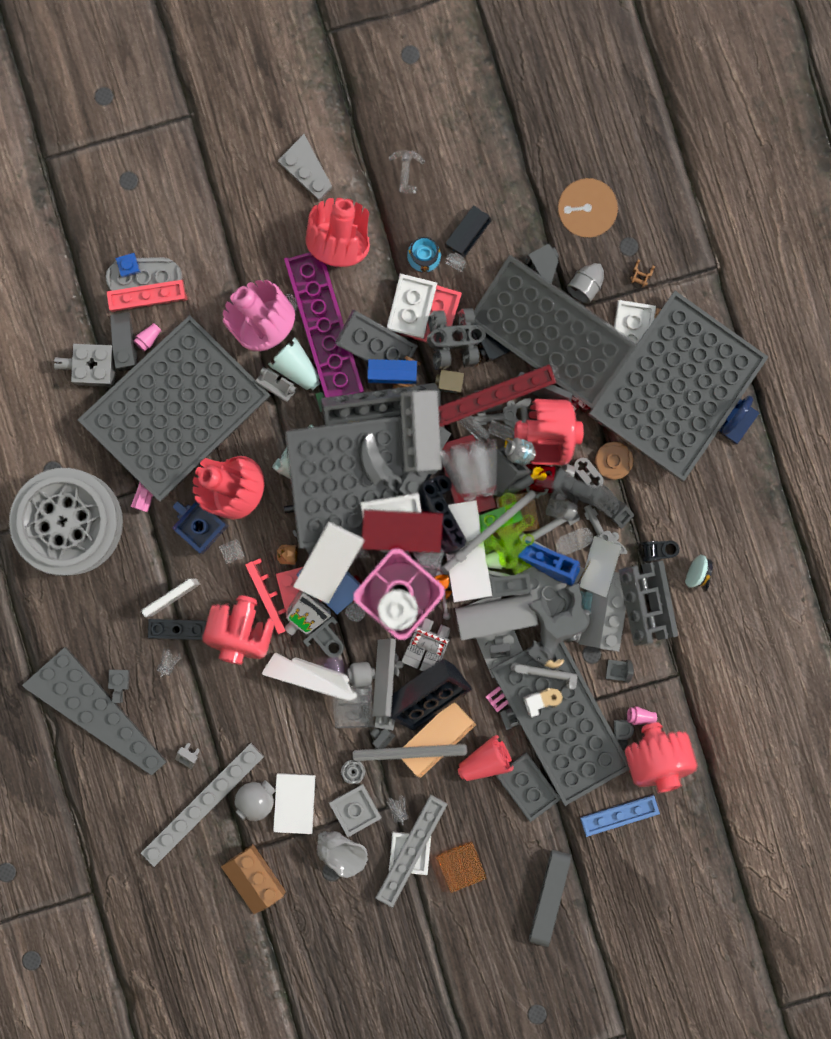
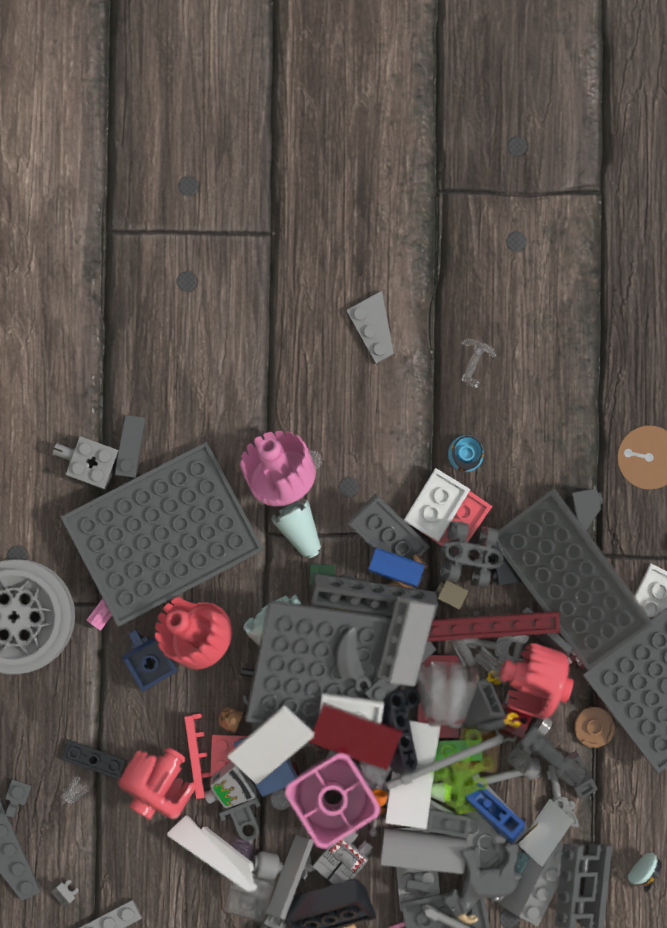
camera: 15 degrees right, 0 degrees up
(128, 265) = (160, 370): blue plate -> none
(146, 295) = (168, 407): coral hinge -> none
(147, 337) = (156, 450): bright pink cone -> none
(152, 272) = (172, 387): light grey tile -> none
(170, 597) = (98, 726): white tile -> none
(232, 551) = (174, 697): clear tile -> none
(282, 388) = (268, 537): light grey hinge -> none
(323, 325) = (340, 495): magenta tile -> none
(338, 232) = (385, 408): coral piece -> none
(397, 610) = (326, 816): white tile -> none
(456, 261) = (496, 471): clear plate -> none
(468, 231) = (519, 445): black piece -> none
(520, 451) = (500, 691): head -> none
(574, 541) = (527, 797): clear tile -> none
(587, 281) = (624, 536): light grey helmet -> none
(591, 470) = (568, 730): light grey beam -> none
(658, 550) = (610, 834): black piece -> none

